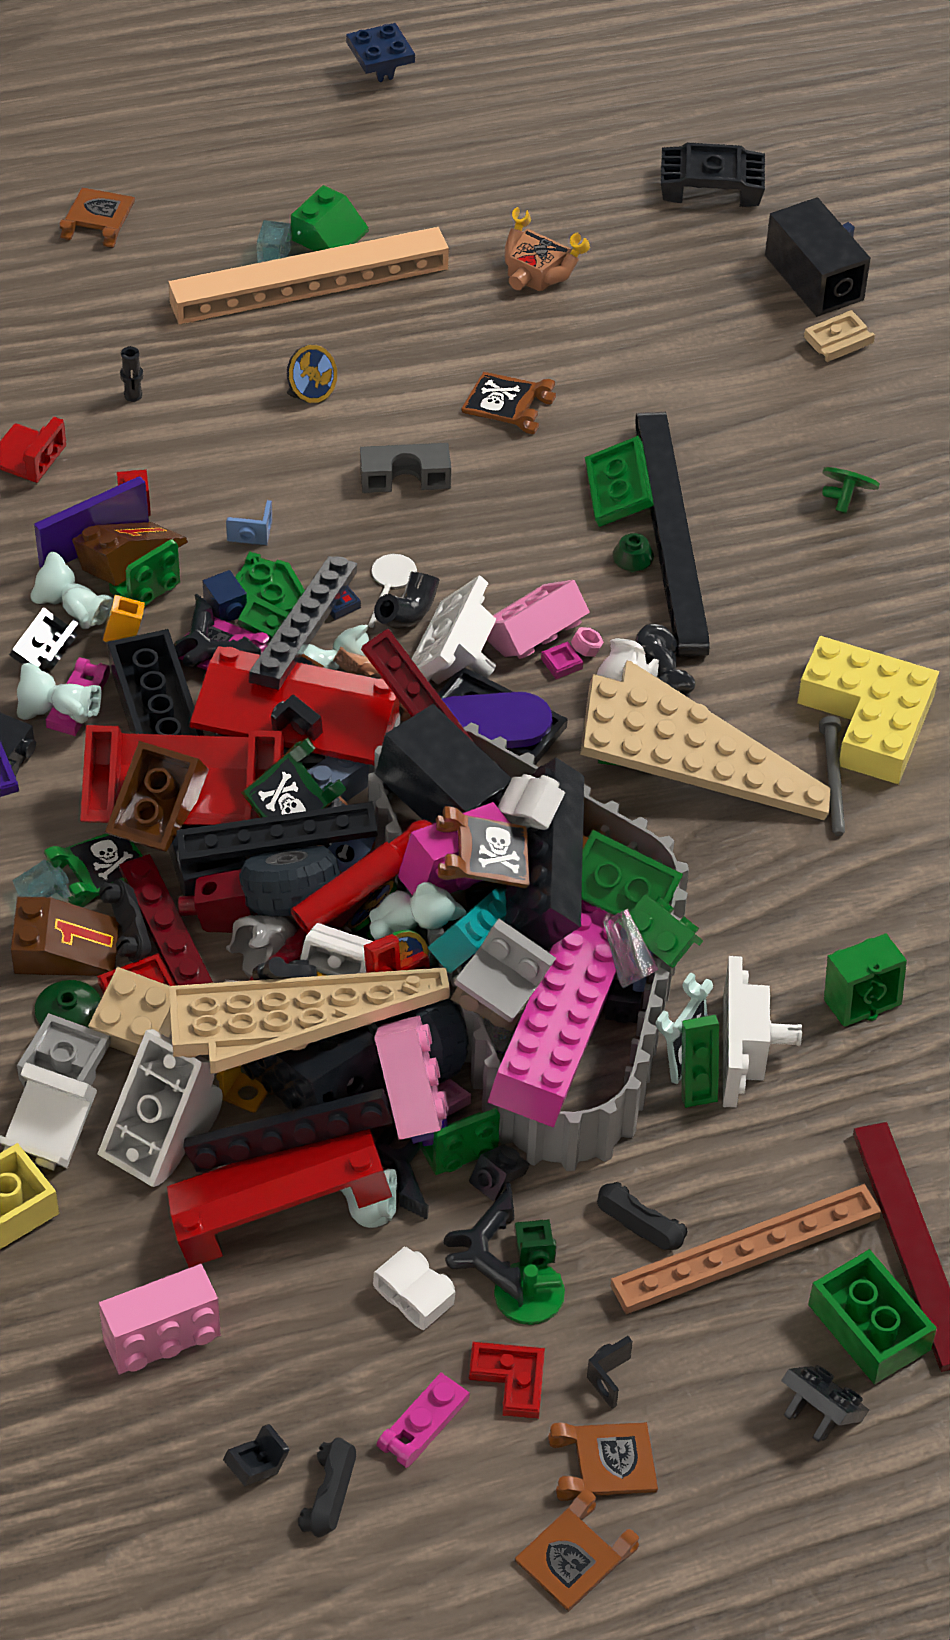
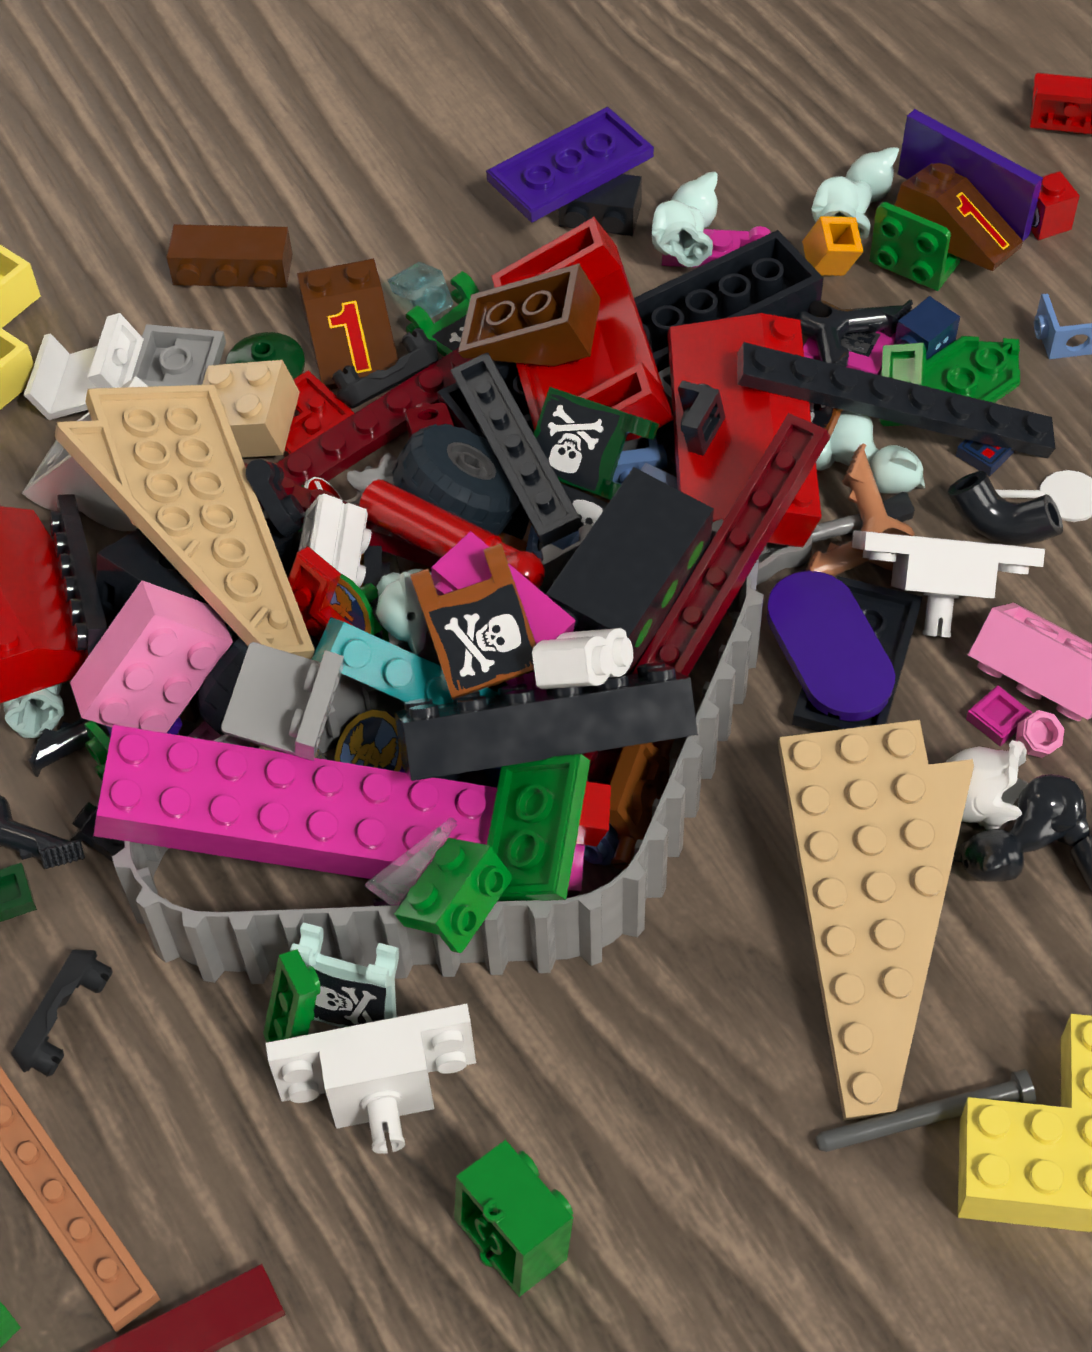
camera: 80 degrees right, 5 degrees up
(44, 640) = (777, 193): bracket -> none

